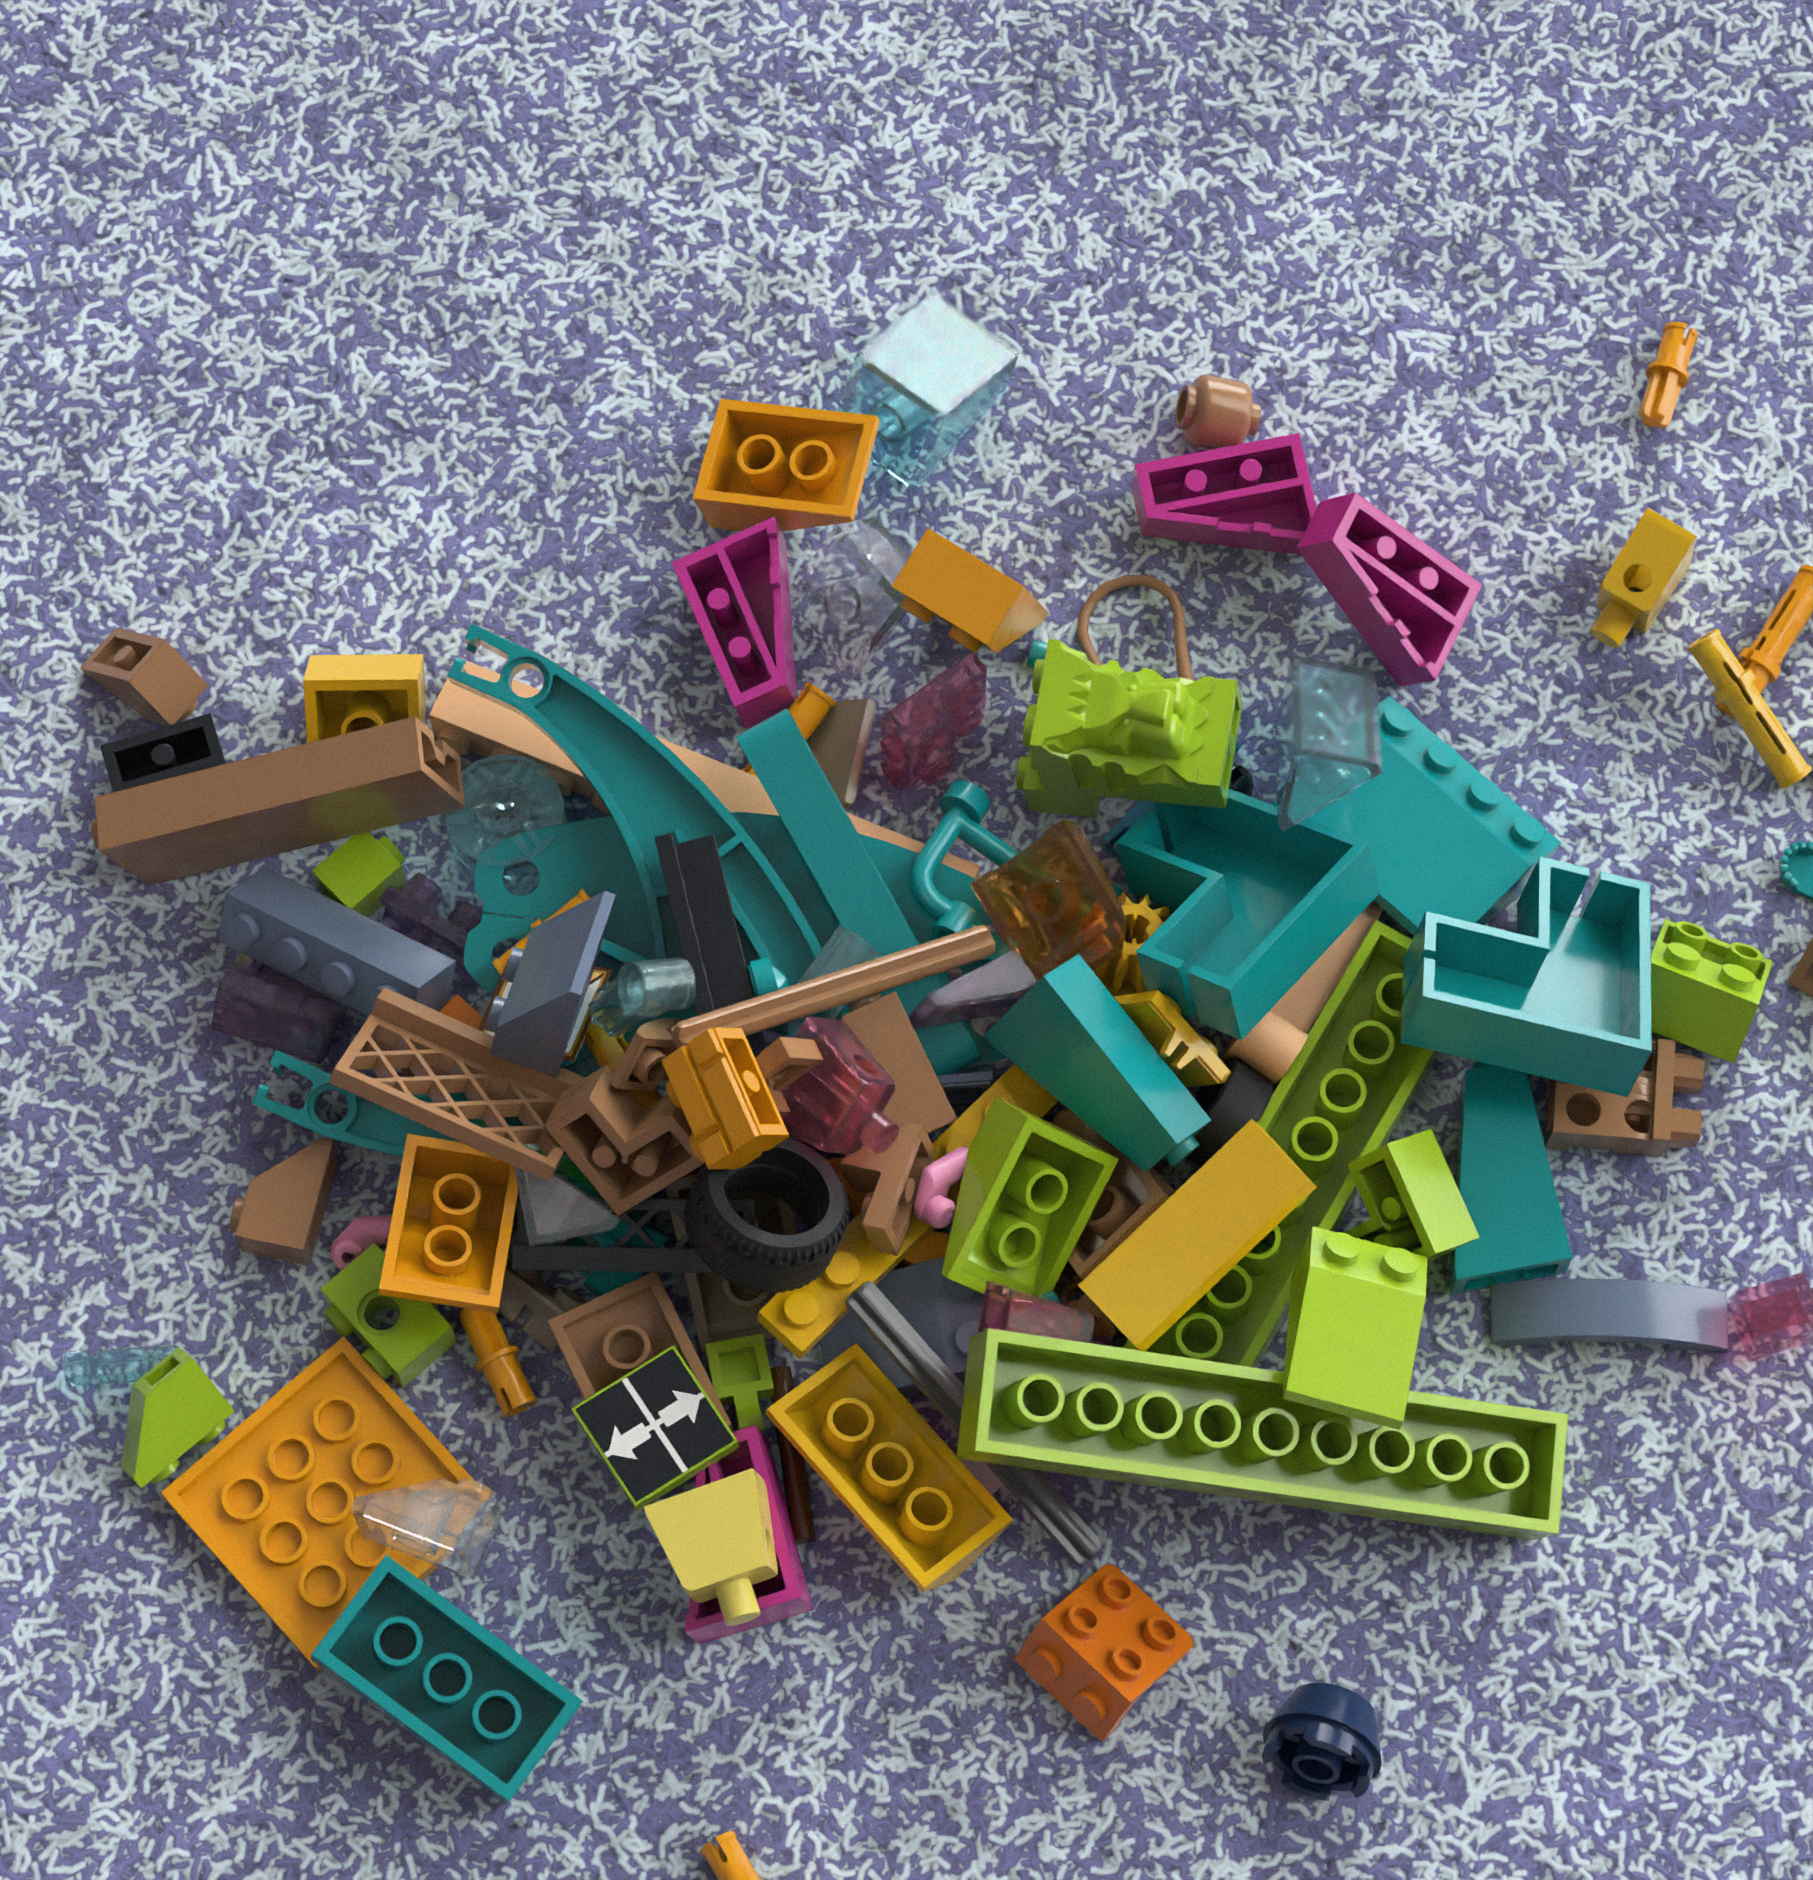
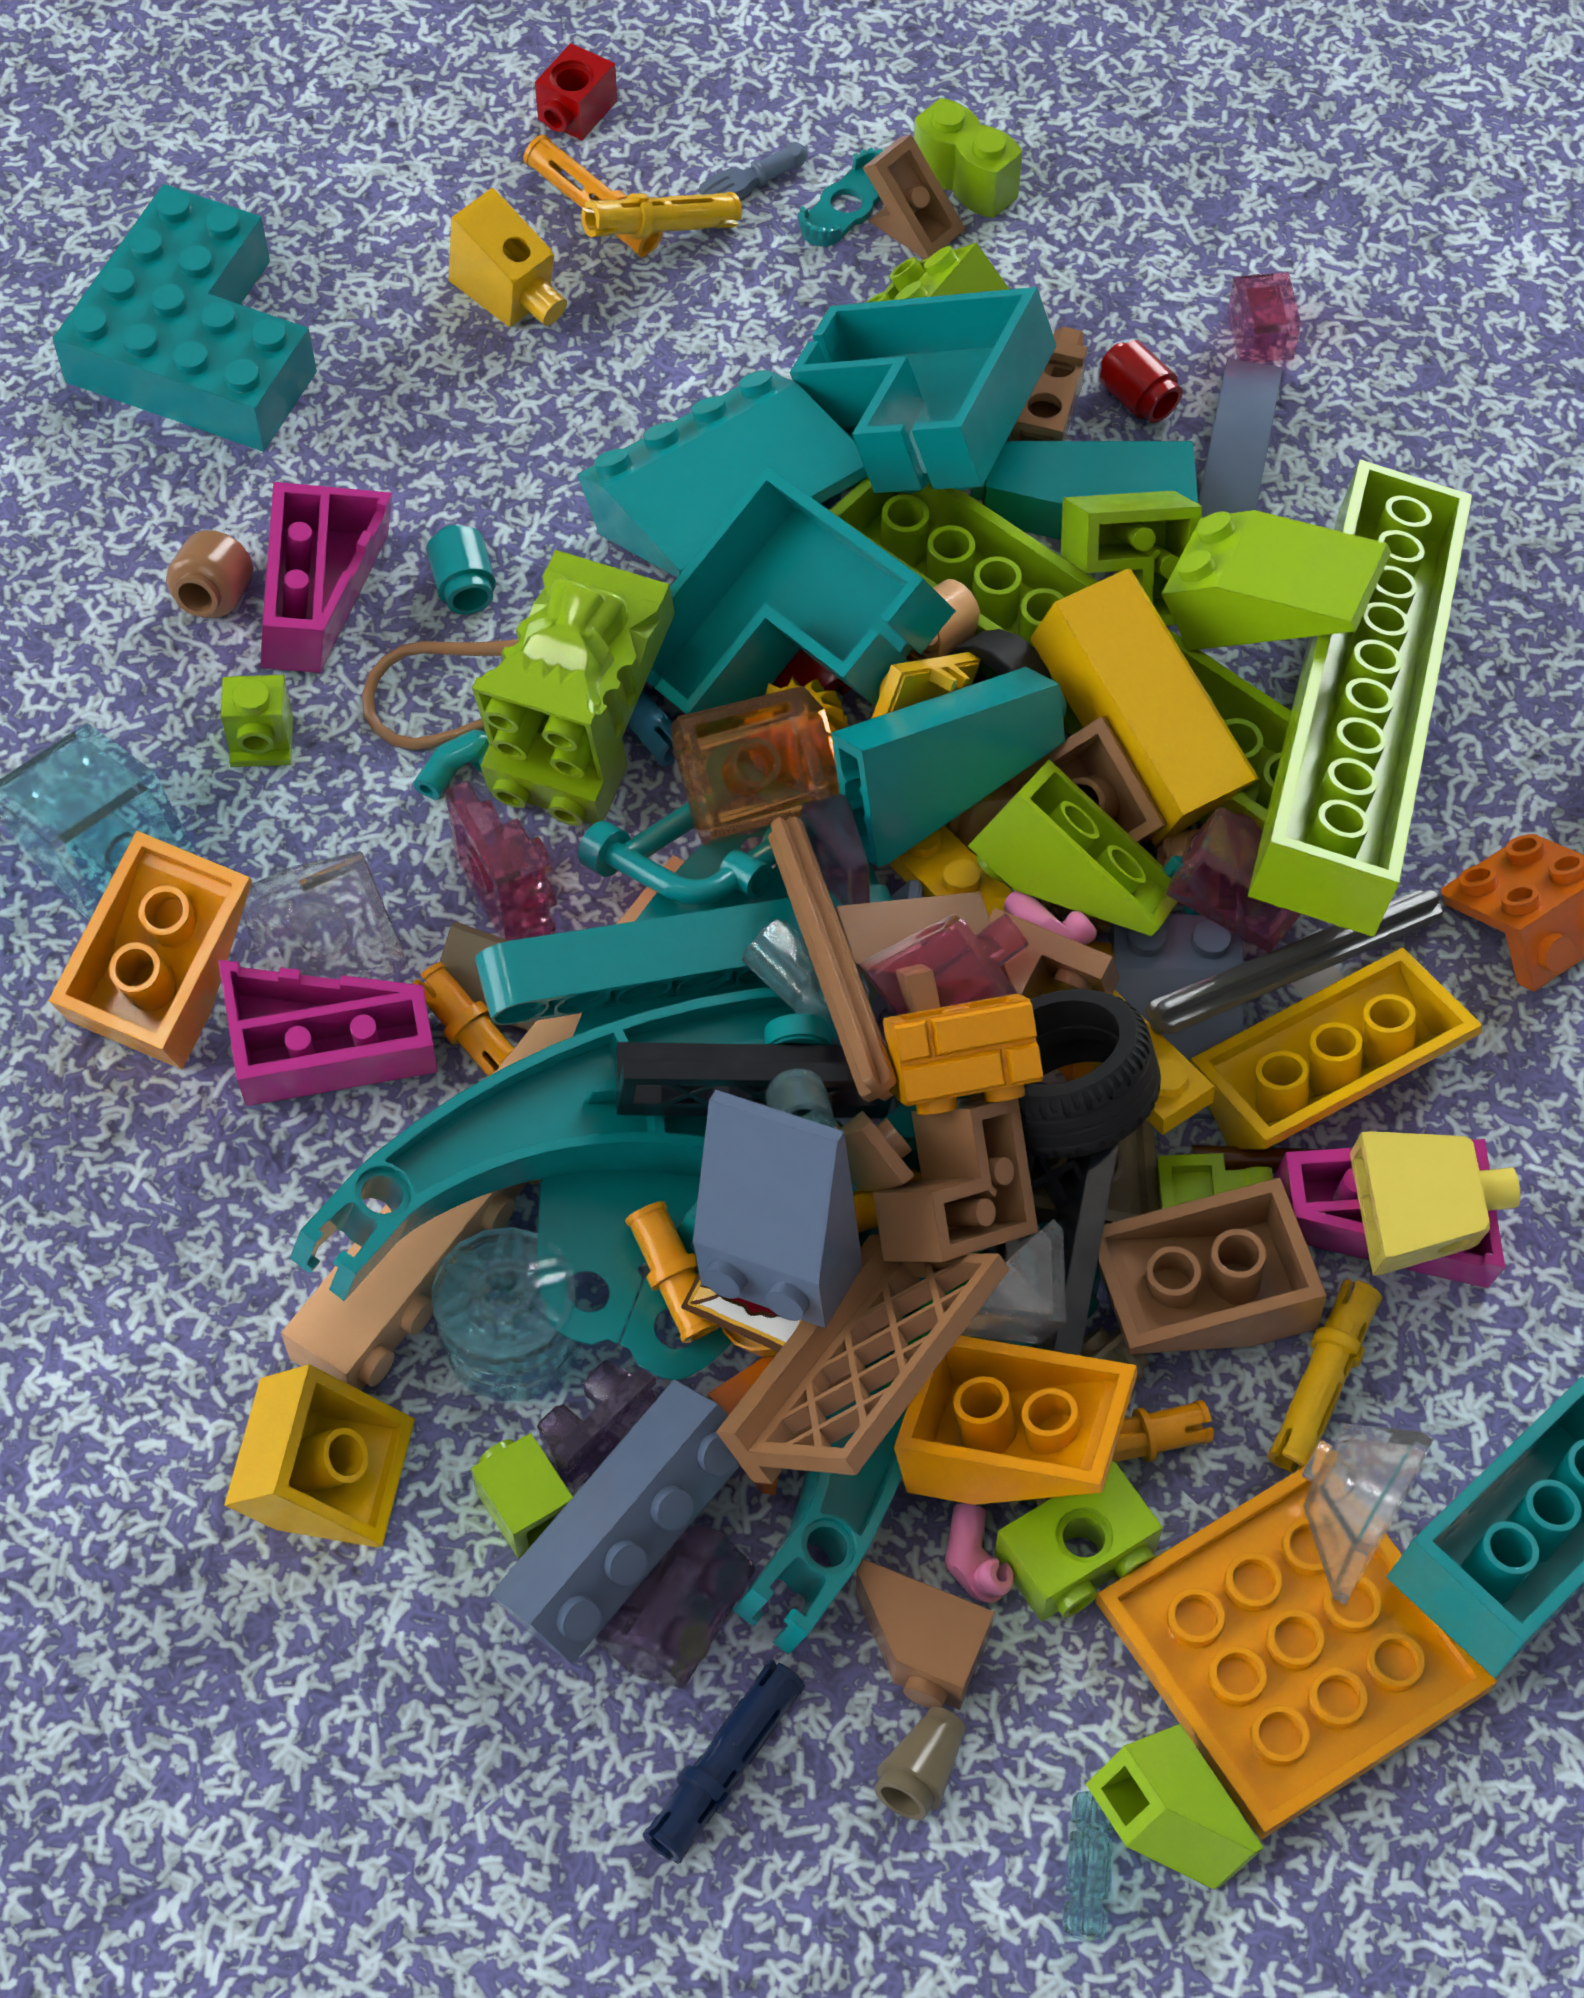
camera: 80 degrees left, 10 degrees down
(146, 675) = (187, 1711): medium nougat slope -> none
(146, 1066) = (707, 1783): none -> dark blue pin
(163, 753) = (329, 1692): black brick -> none
(183, 1223) = (921, 1764): none -> dark tan cone
(279, 801) = (432, 1539): medium nougat brick -> none
(564, 1500) = (1334, 1355): none -> yellow pin
(655, 1428) = (1281, 1247): black tile -> none
(966, 594) = (369, 787): light orange slope -> none
(1062, 493) = (257, 720): none -> lime brick
(1275, 624) = (461, 569): none -> teal brick
(1324, 737) = (636, 504): clear light blue slope -> none
(1389, 585) = (462, 448): dark pink wedge -> none
(1505, 290) = (171, 329): none -> teal brick
(1660, 1205) = (1140, 381): none -> red brick
(1667, 375) = (291, 221): light orange axle -> none

